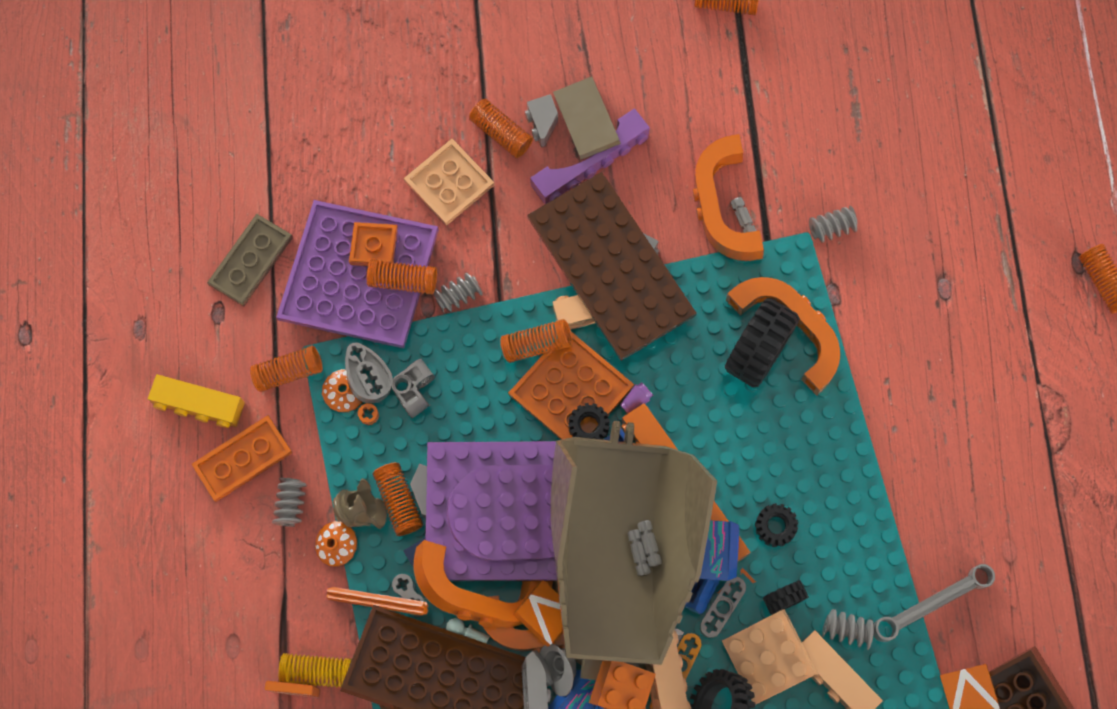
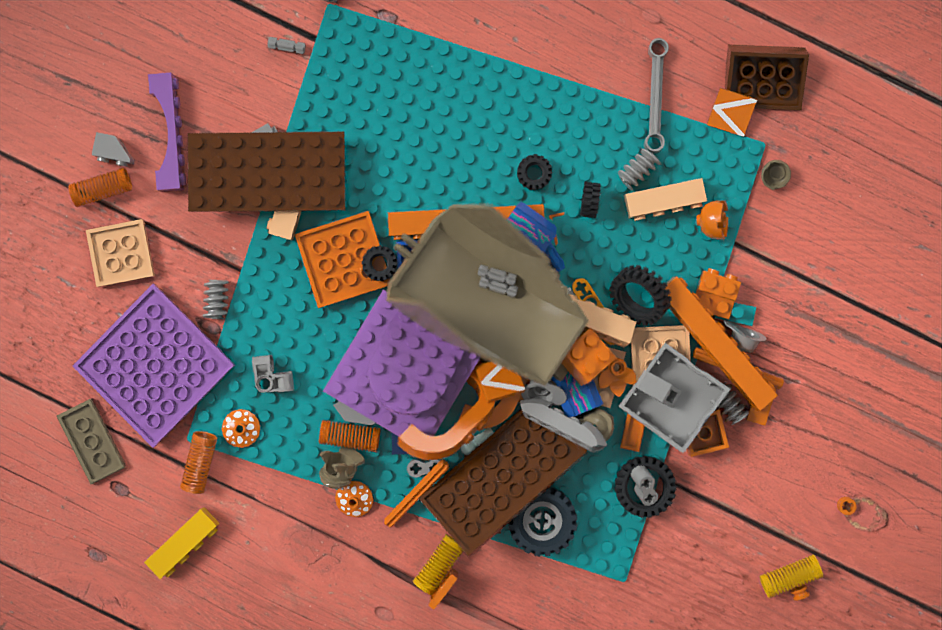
camera: 60 degrees left, 15 degrees up
(241, 458) = (247, 532): orange plate -> none
(289, 502) = (303, 515): light grey piece -> none
(357, 380) = (242, 394): light grey piece -> none
(366, 420) = (274, 416): orange bush -> none
(372, 242) = (138, 341): orange tile -> none
(427, 279) = (177, 333): orange piece -> none
(509, 345) = (281, 285): orange piece -> none
(586, 118) = (132, 116): dark tan tile -> none
(636, 397) = (379, 215): medium lavender cone -> none
(732, 244) = (303, 69): orange arch -> none
(737, 596) = (580, 258): light grey beam -> none
(761, 342) = (397, 98): black tyre -> none
(770, 656) = (624, 237): light nougat plate -> none
(811, 323) = (392, 51): orange arch -> none

